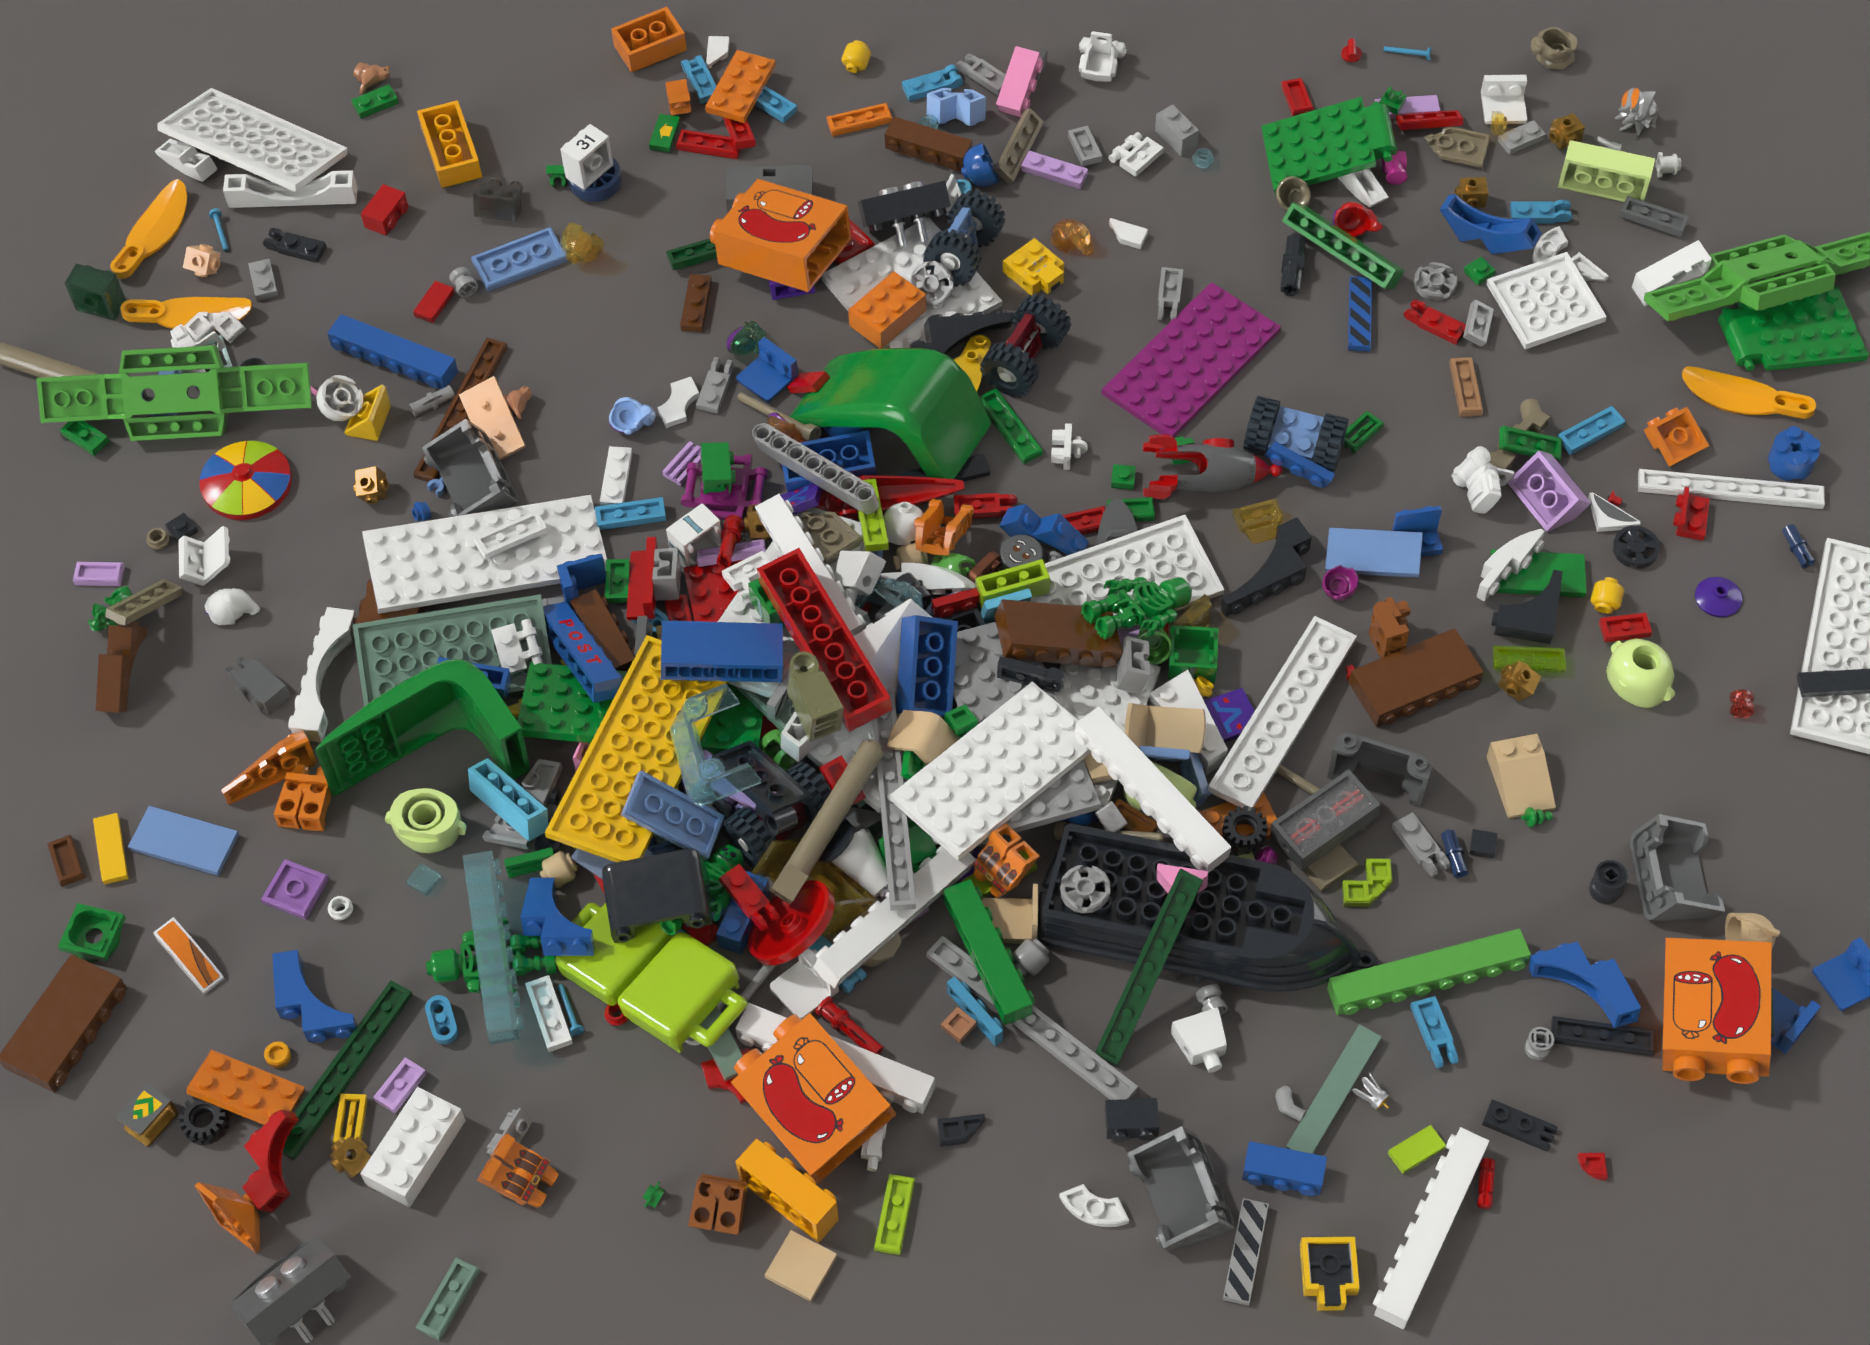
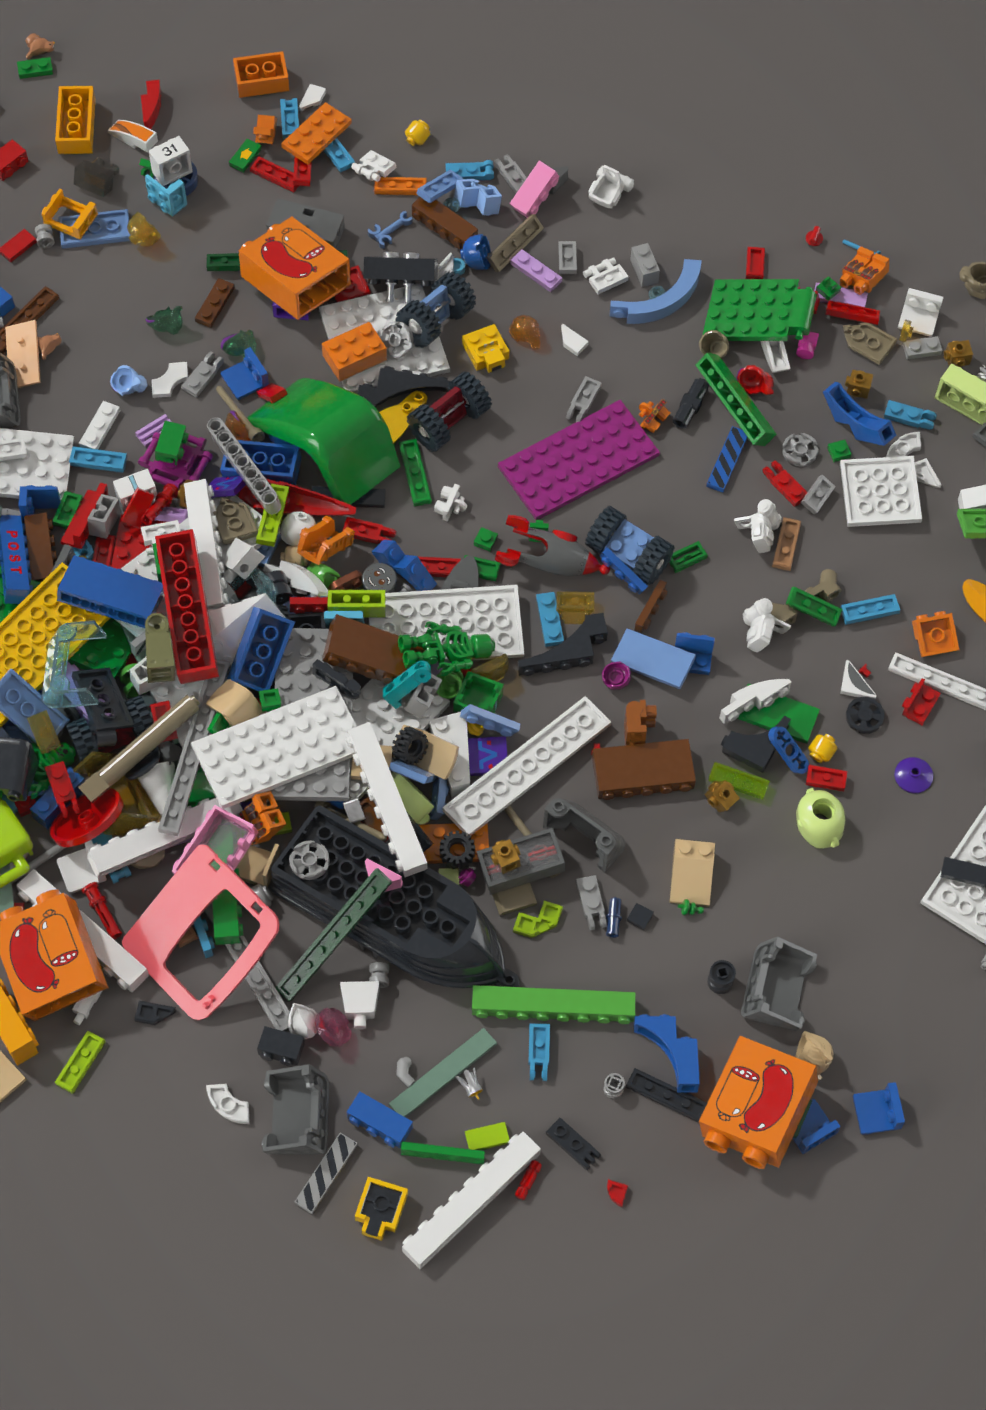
camera: 15 degrees right, 5 degrees up
(504, 254) = (87, 215): none -> light orange window
(524, 143) = (134, 134): none -> slope
(530, 104) = (151, 103): none -> red slope
(594, 202) = (170, 199): none -> medium azure bracket
(649, 336) = (166, 320): none -> clear green hair
(702, 837) = (44, 732): none -> clear yellow plate
(706, 551) = (137, 507): none -> red tile
(821, 105) = (374, 165): none -> white plate
(863, 177) = (381, 236): none -> medium blue bar
(908, 105) = (439, 186): none -> medium blue plate
(945, 998) = (175, 911): none -> coral door
(966, 913) = (225, 835): none -> window
(1112, 655) = (406, 682): none -> teal leg
(1144, 725) = (402, 744): none -> black tyre
(1151, 1081) = (302, 1021): none -> white piece
(1184, 1076) = (333, 1027): none -> clear pink tile
(1214, 169) = (664, 304): none -> medium blue arch
(1220, 673) = (490, 720): none -> medium blue plate
(1235, 544) = (549, 619): none -> dark azure plate
(1254, 286) = (659, 411): none -> orange hips
(1312, 815) = (506, 856): none -> pearl gold brick
(1347, 496) = (651, 607): none -> reddish brown plate
(1375, 1183) = (442, 1153): none -> green tile
(1424, 74) = (864, 271): none -> orange hips
(1433, 369) = (762, 525): none -> white piece
(1548, 491) = (813, 649): lavender slope -> none
(1561, 597) = (781, 746): none -> blue beam
(1741, 703) = (891, 867): clear red wheel -> none

